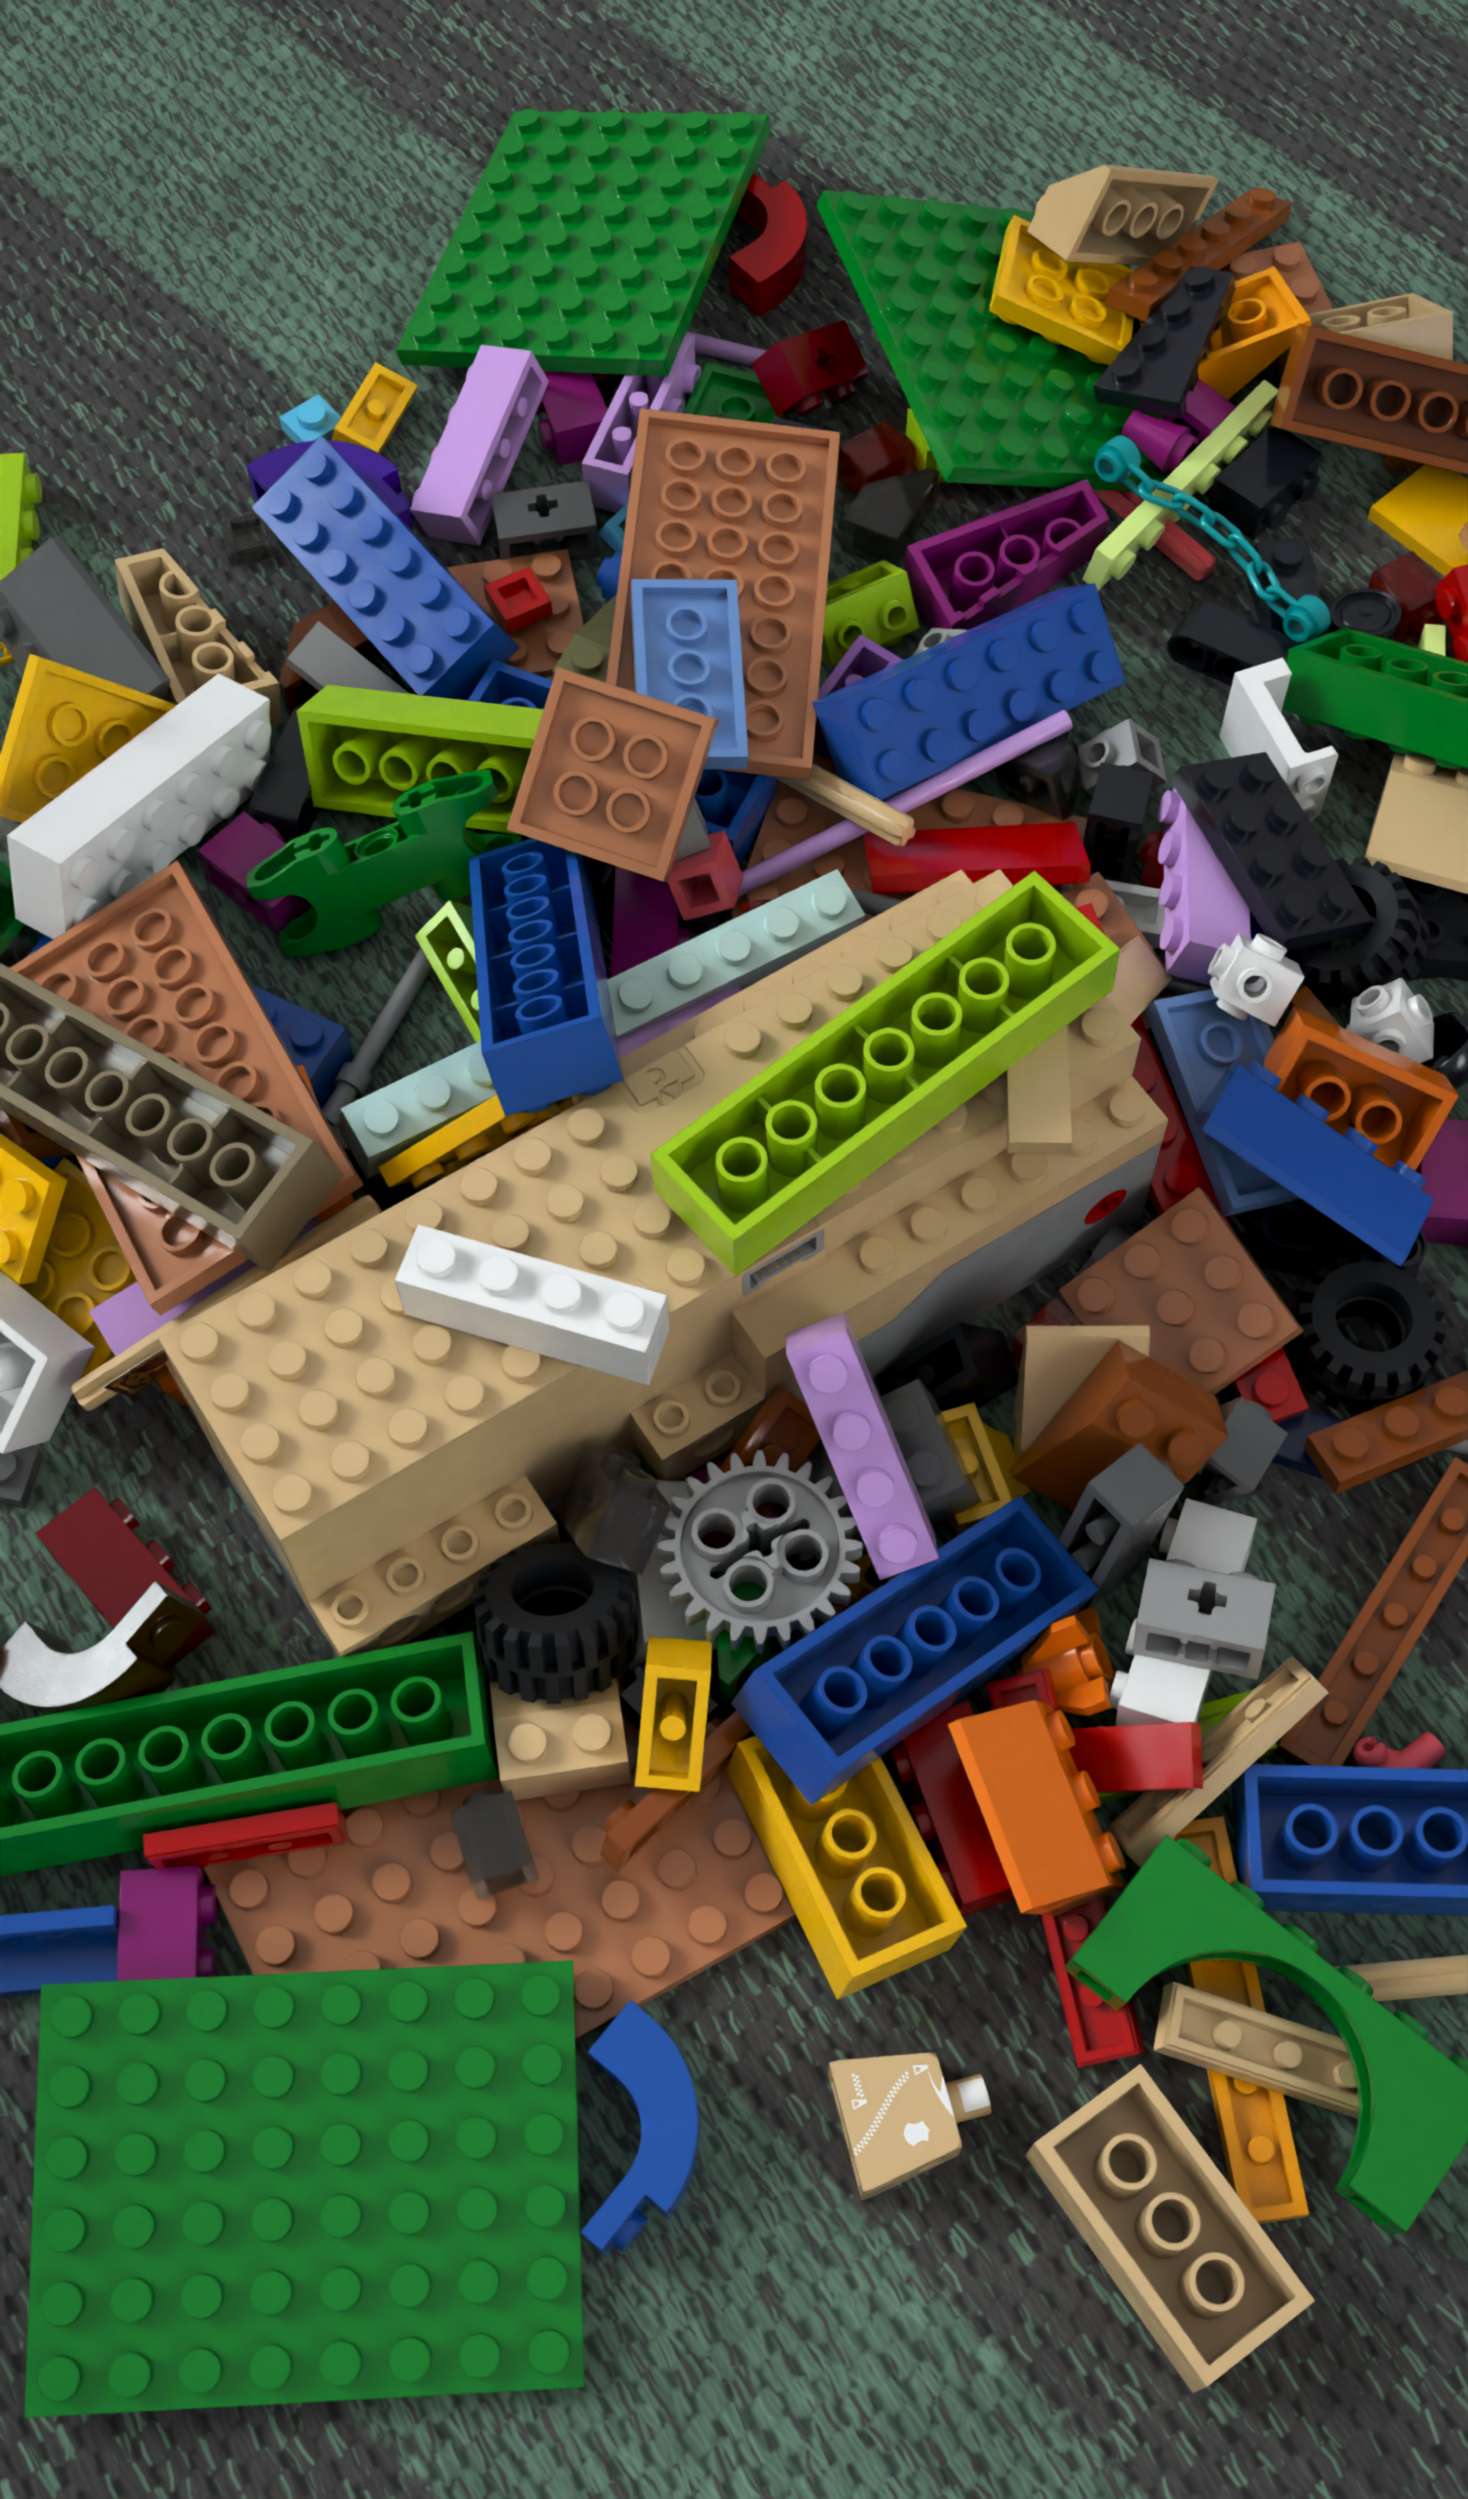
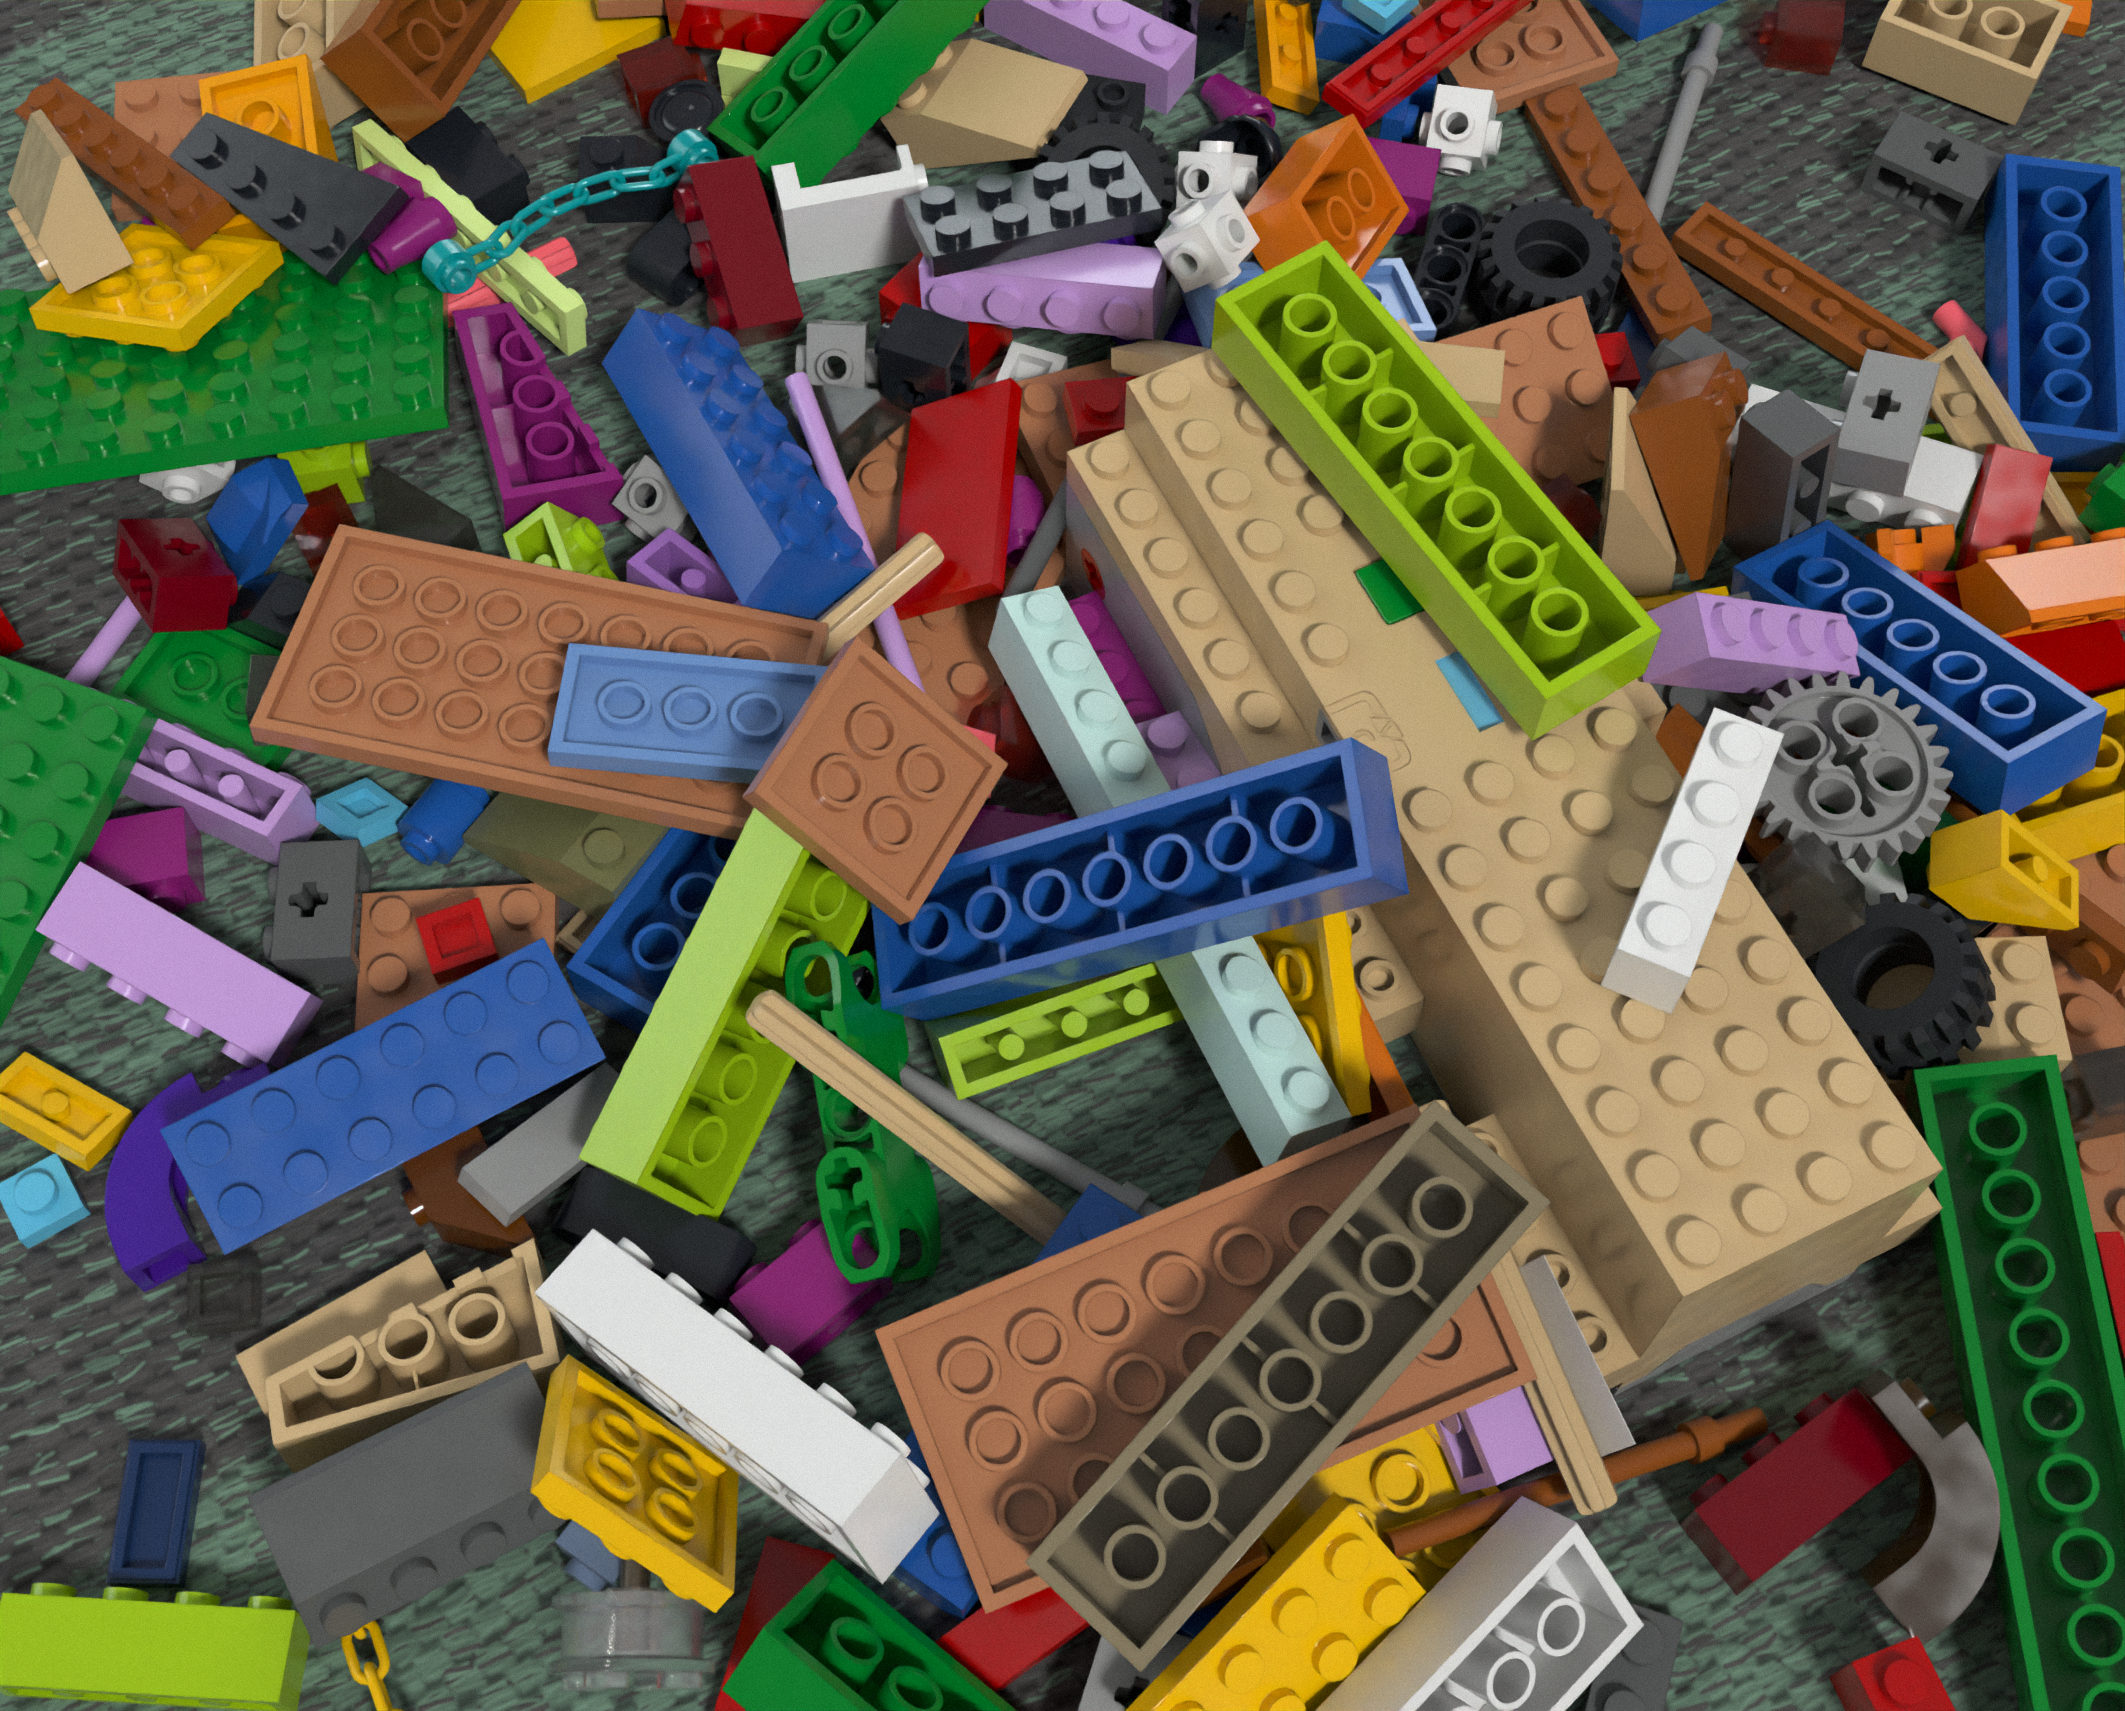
camera: 85 degrees left, 0 degrees up
(100, 532) = (156, 1514): none -> dark blue tile
(168, 1507) = (1693, 1441): none -> dark orange bar
(241, 615) = (352, 1314): none -> tan tile
(370, 872) = (904, 1115): none -> tan axle
(868, 406) = (256, 516): none -> blue slope
(1202, 666) = (737, 250): none -> dark red brick
(1315, 1160) = (1432, 225): blue slope -> none

